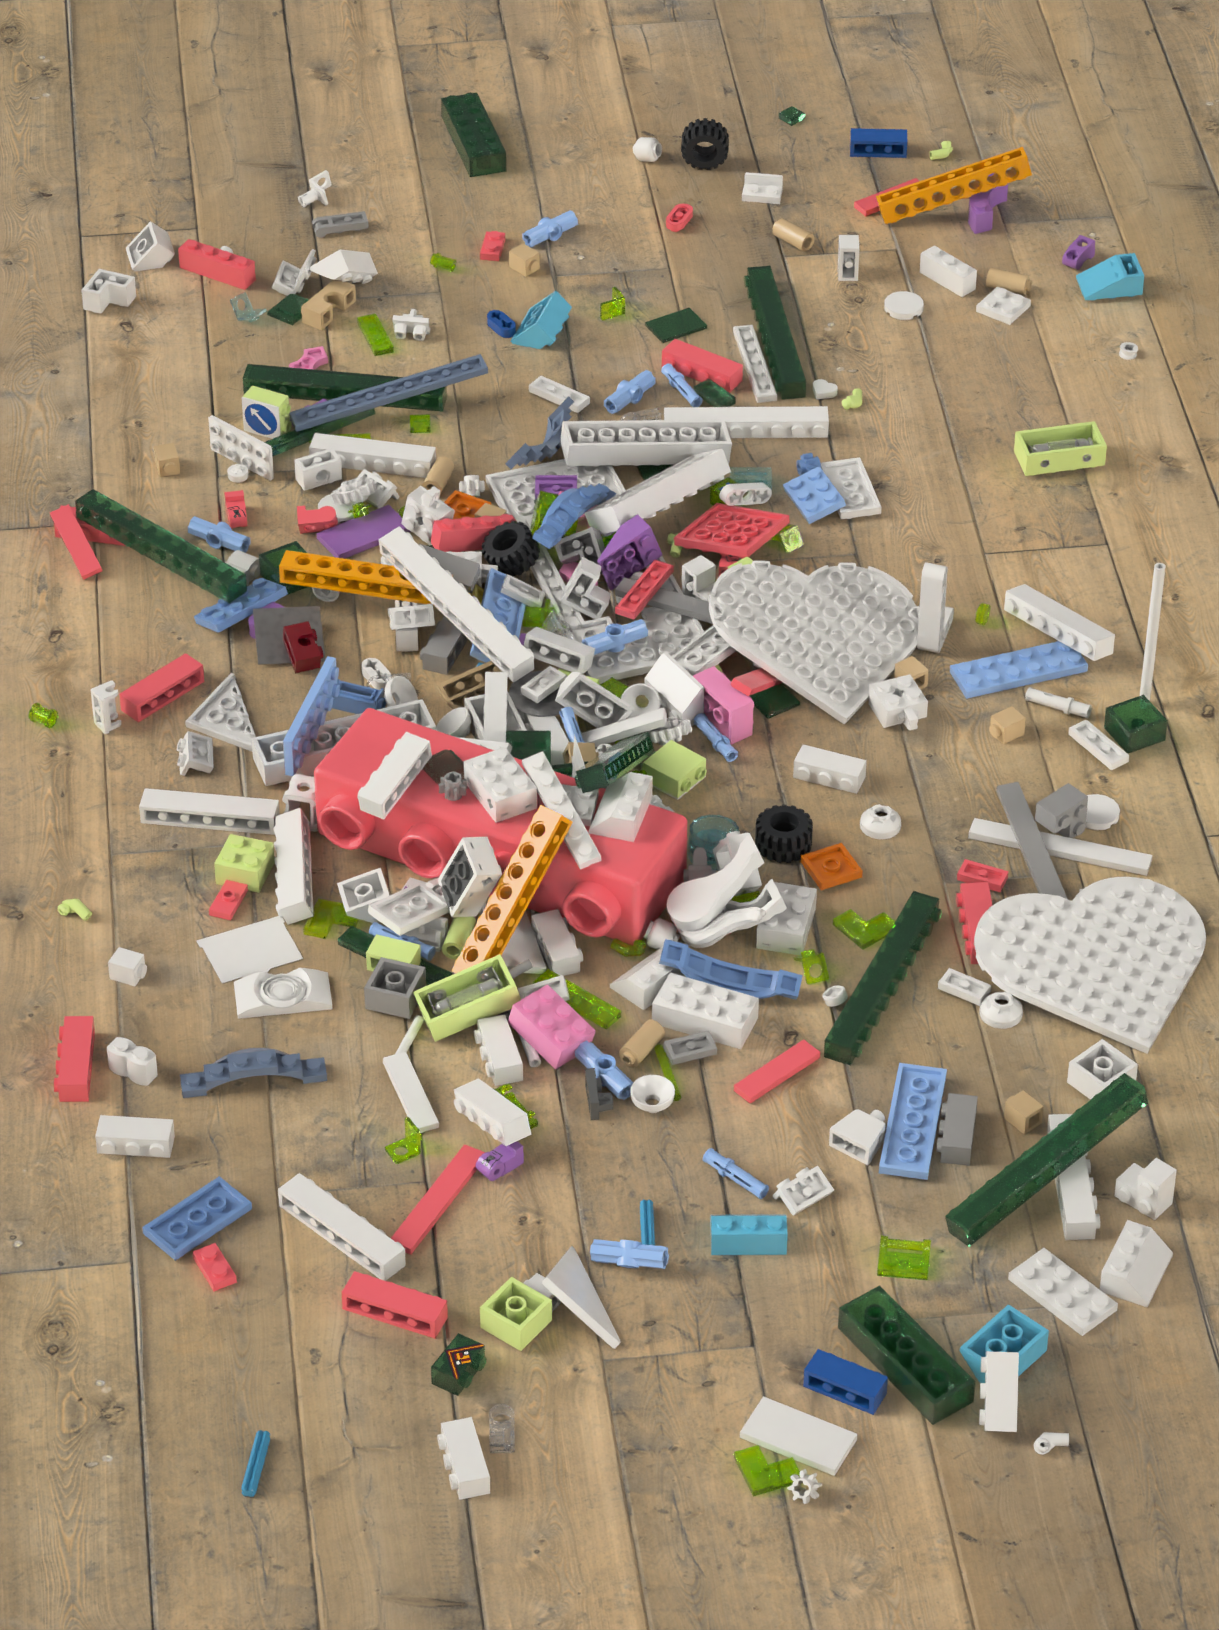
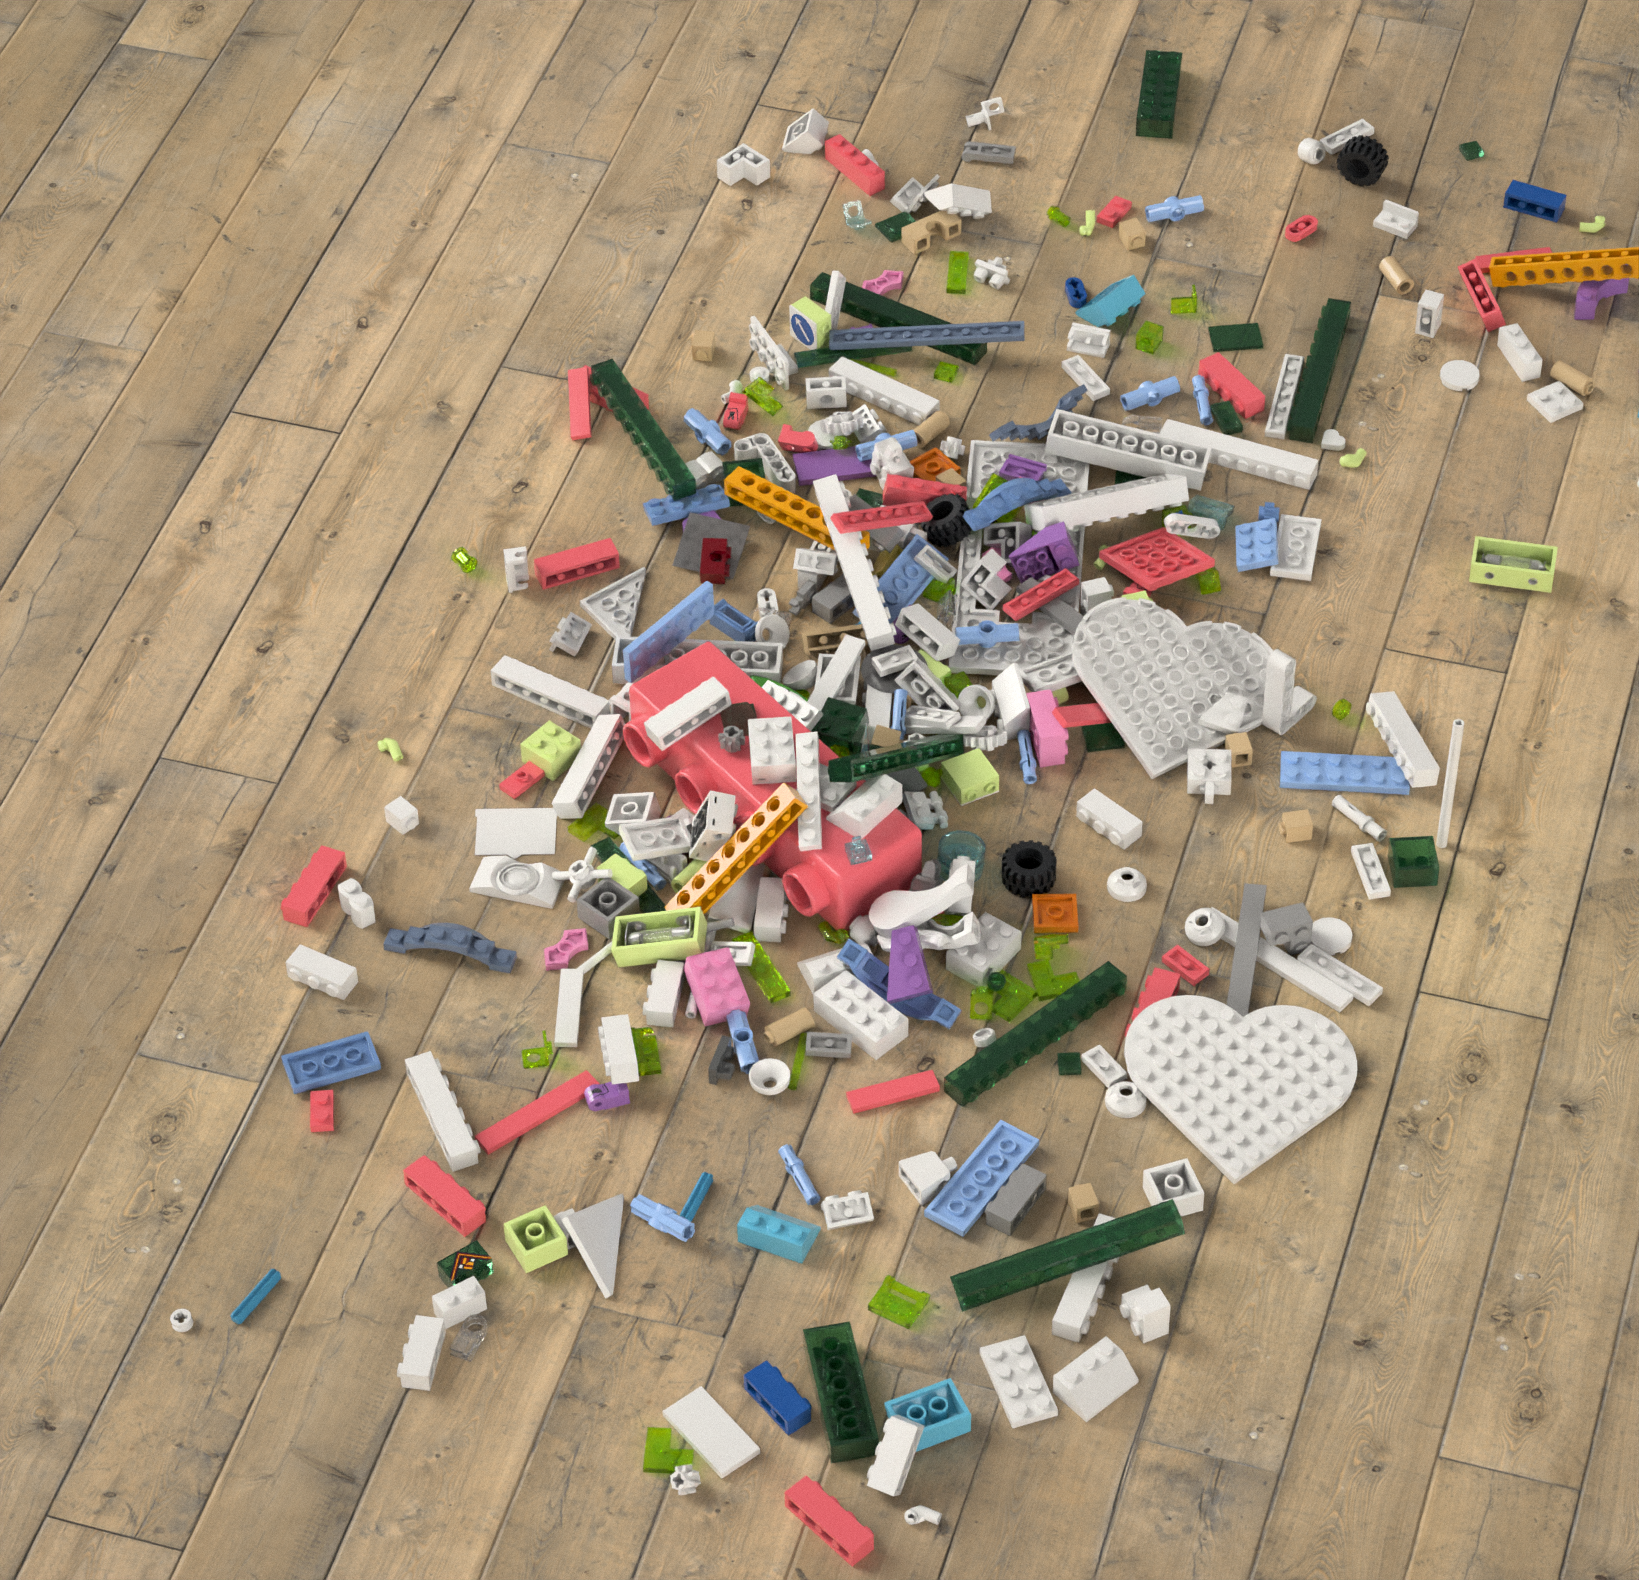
camera: 25 degrees right, 5 degrees up
(194, 1506) = (184, 1326): none -> white bush
(221, 487) = (735, 387): none -> white arm
(252, 486) = (759, 392): none -> clear neon green tile
(276, 374) = (835, 297): none -> white tile
(284, 532) = (774, 463): none -> white beam
(352, 964) = (582, 874): none -> white bar
(368, 1048) = (560, 954): none -> bright pink tile
(396, 506) = (905, 439): none -> light blue piece
(411, 655) = (803, 597): none -> light grey plate
(460, 556) = (881, 517): none -> coral tile
(474, 1396) = (459, 1302): none -> white brick
(477, 266) = (1090, 223): none -> yellowish green arm
(541, 360) = (1088, 340): none -> white hinge
(598, 344) = (1149, 337): none -> clear neon green brick
(608, 725) = (931, 717): none -> white tile
(640, 851) = (858, 851): none -> clear light blue tile
(672, 129) = (1336, 141): none -> white plate
(735, 948) = (907, 966): none -> medium lavender wedge
(816, 939) = (994, 981): none -> clear green hinge
(837, 948) = (1015, 997): none -> clear neon green tile
(843, 896) = (1046, 944): none -> clear neon green bracket
(884, 231) = (1481, 295): none -> coral brick
(884, 646) = (1225, 714): none -> white wing
(928, 995) = (1069, 1063): none -> clear green tile
(967, 1476) = (829, 1520): none -> coral brick
(982, 844) = (1206, 934): none -> white piece
(1158, 847) = (1341, 974): none -> white plate

